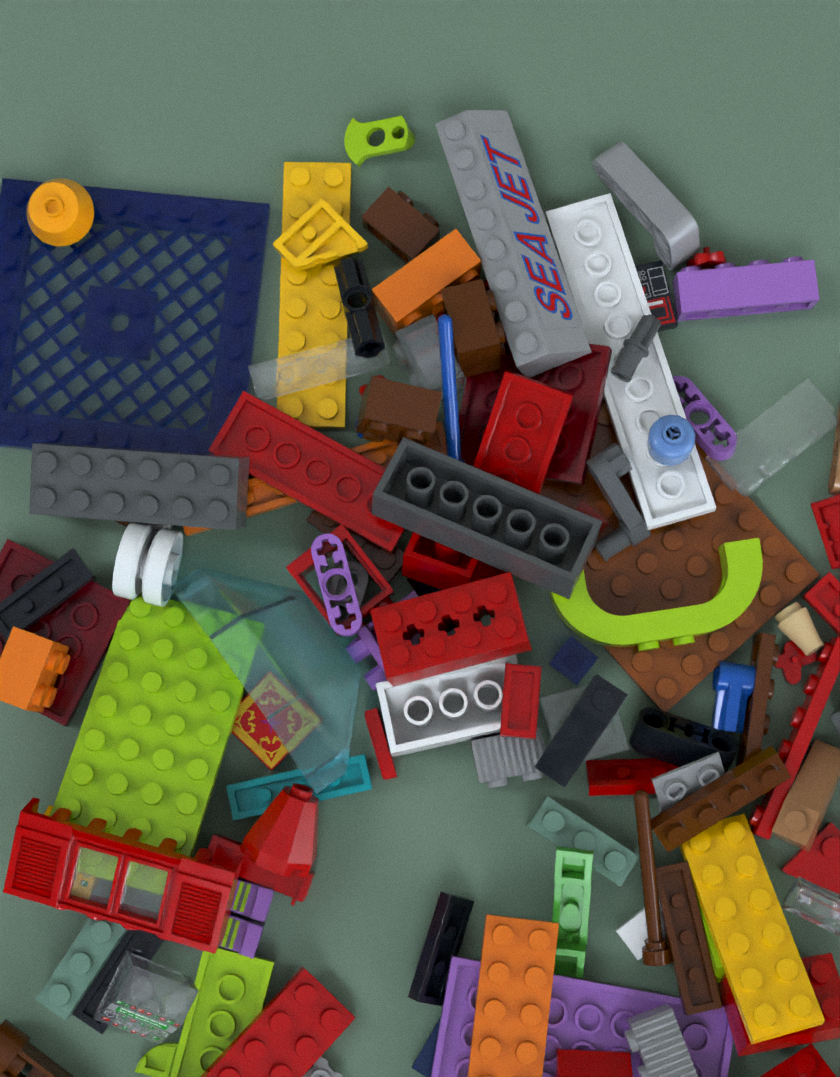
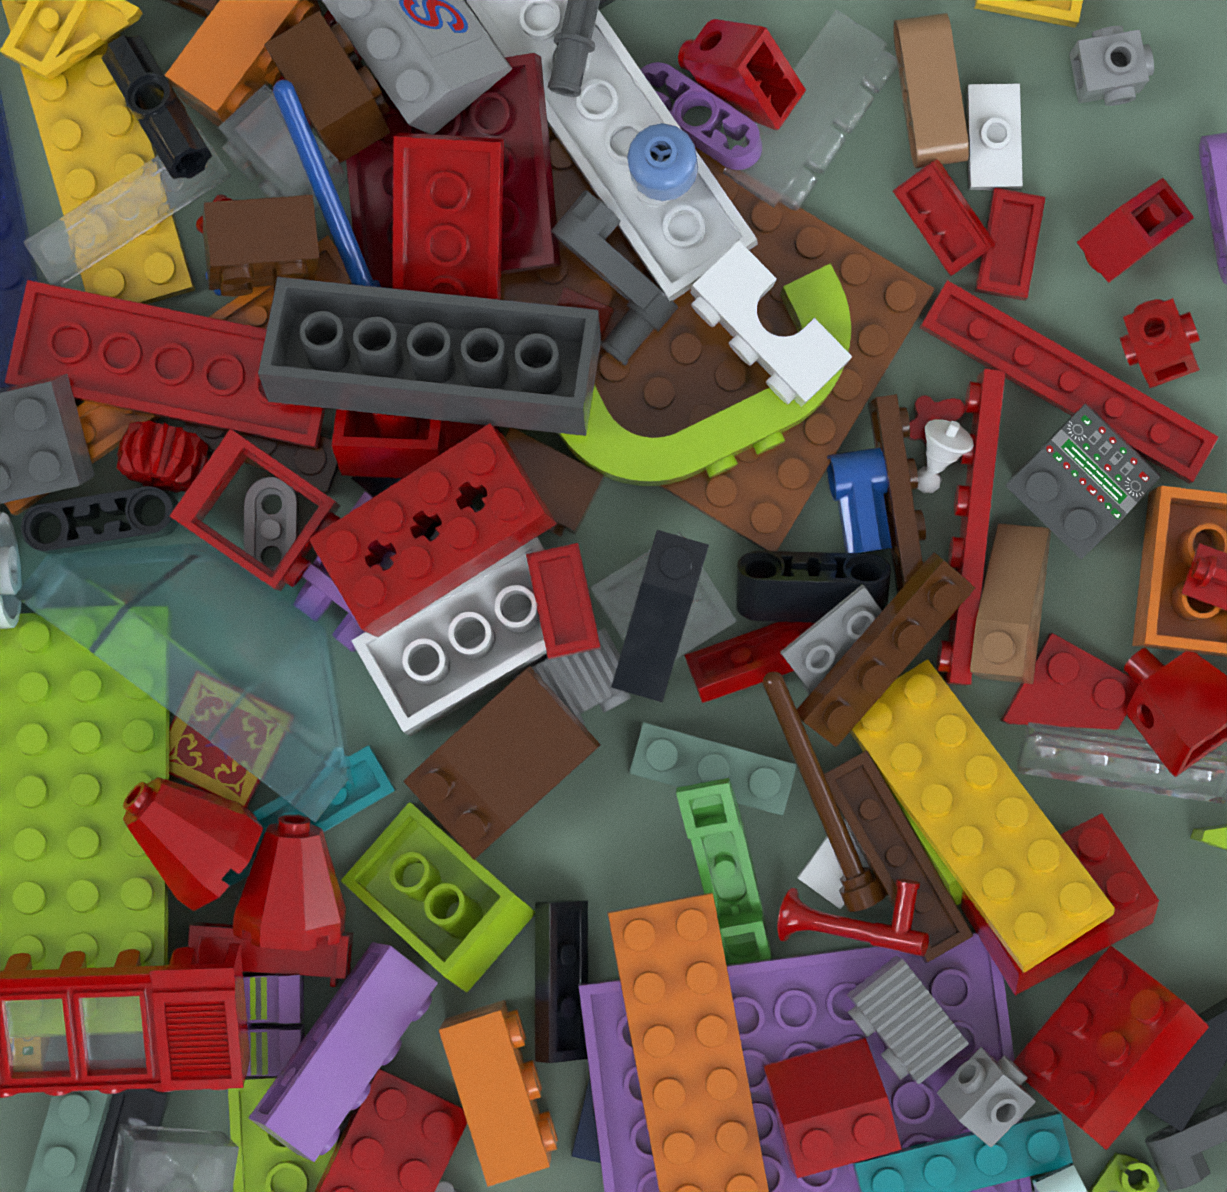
camera: 25 degrees left, 5 degrees up
(233, 546) = (88, 509): none -> black beam
(234, 778) = (191, 837): none -> red cone
(286, 950) = (344, 1051): none -> medium lavender brick
(291, 527) = (161, 455): none -> red gear
(321, 561) = (217, 492): medium lavender beam -> none
(378, 868) = (438, 897): none -> lime slope
(379, 1010) = (499, 1092): none -> orange brick
(380, 744) = (385, 723): red tile -> none
(447, 793) = (501, 762): none -> reddish brown slope
(541, 622) = (561, 481): none -> reddish brown brick
(573, 660) = (623, 520): clear blue plate -> none
(673, 991) = (798, 916): none -> red piece
(717, 595) = (796, 363): none -> white arch
(738, 397) = (744, 70): none -> red torso
(796, 678) = (944, 446): none -> white piece
(799, 628) = (927, 373): tan cone -> none

